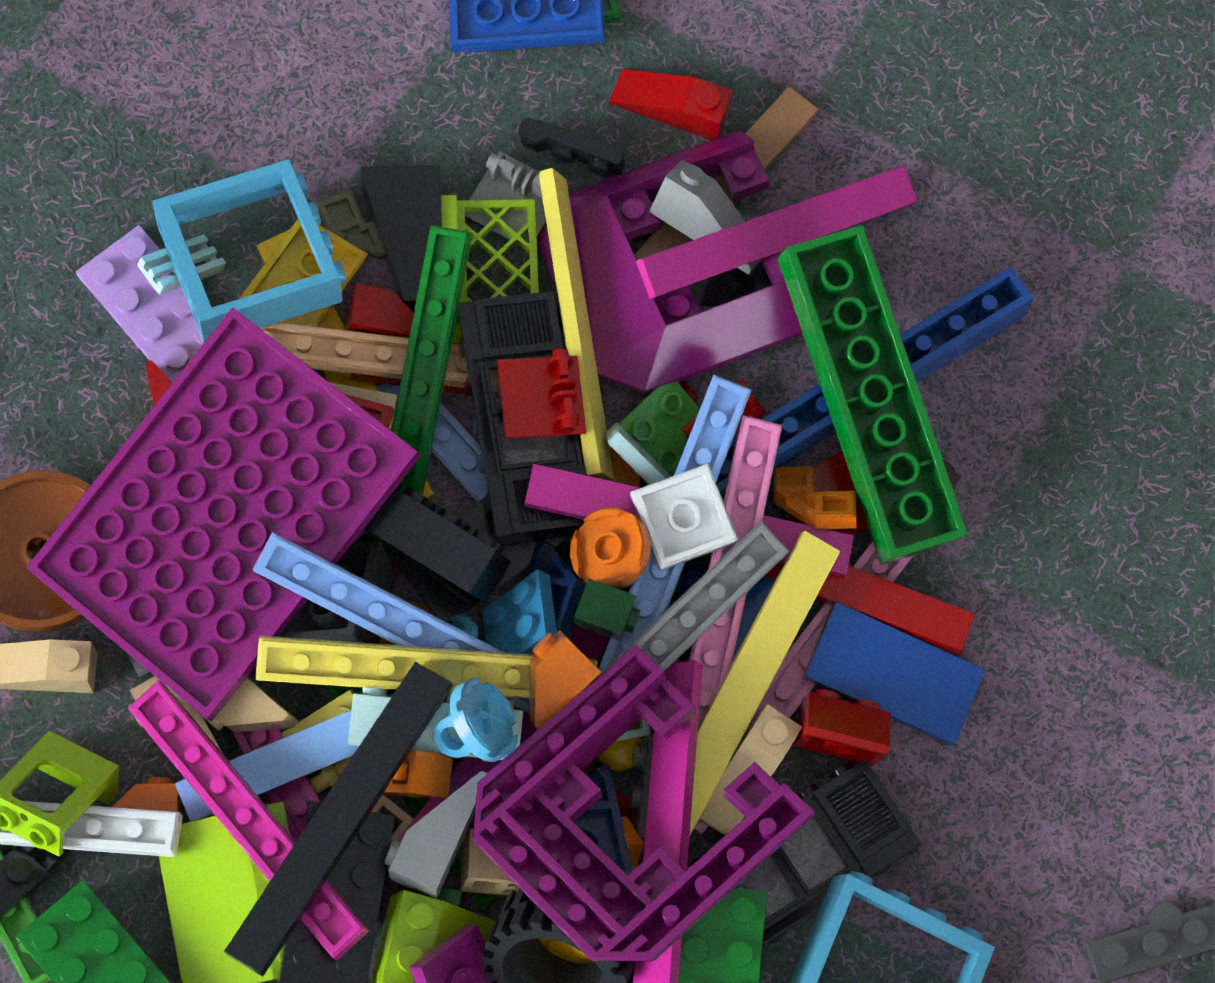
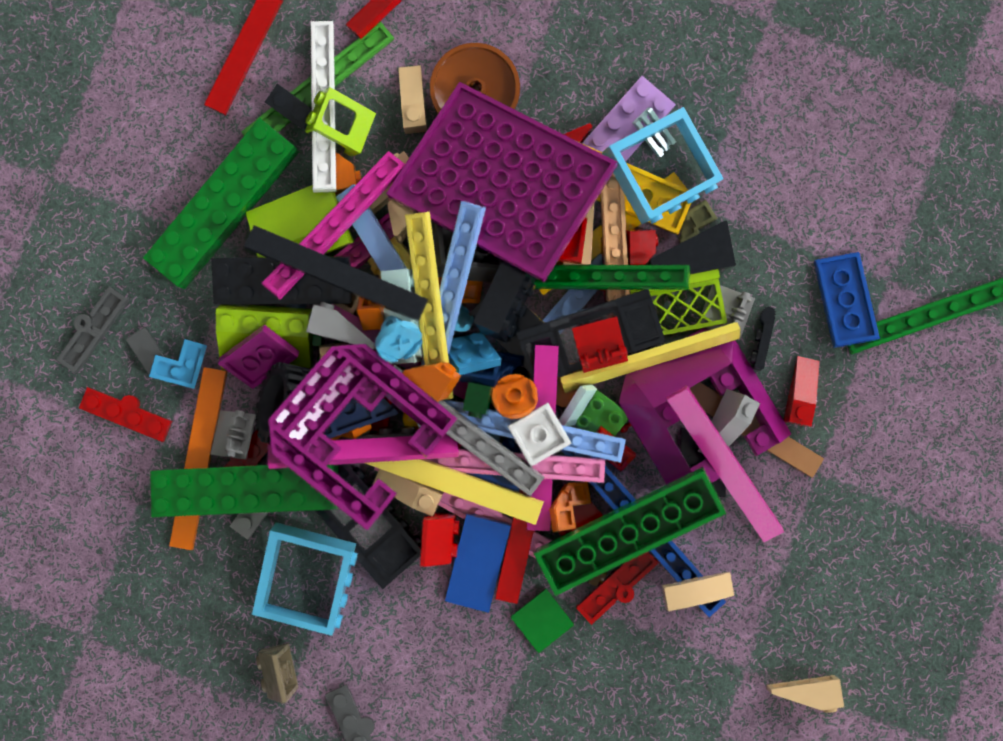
camera: 85 degrees right, 15 degrees up
(965, 448) = (616, 587): none -> red hinge
(987, 306) = (697, 591): none -> tan slope
(1008, 583) = (542, 620): none -> green tile
(1178, 152) = (819, 692): none -> tan slope

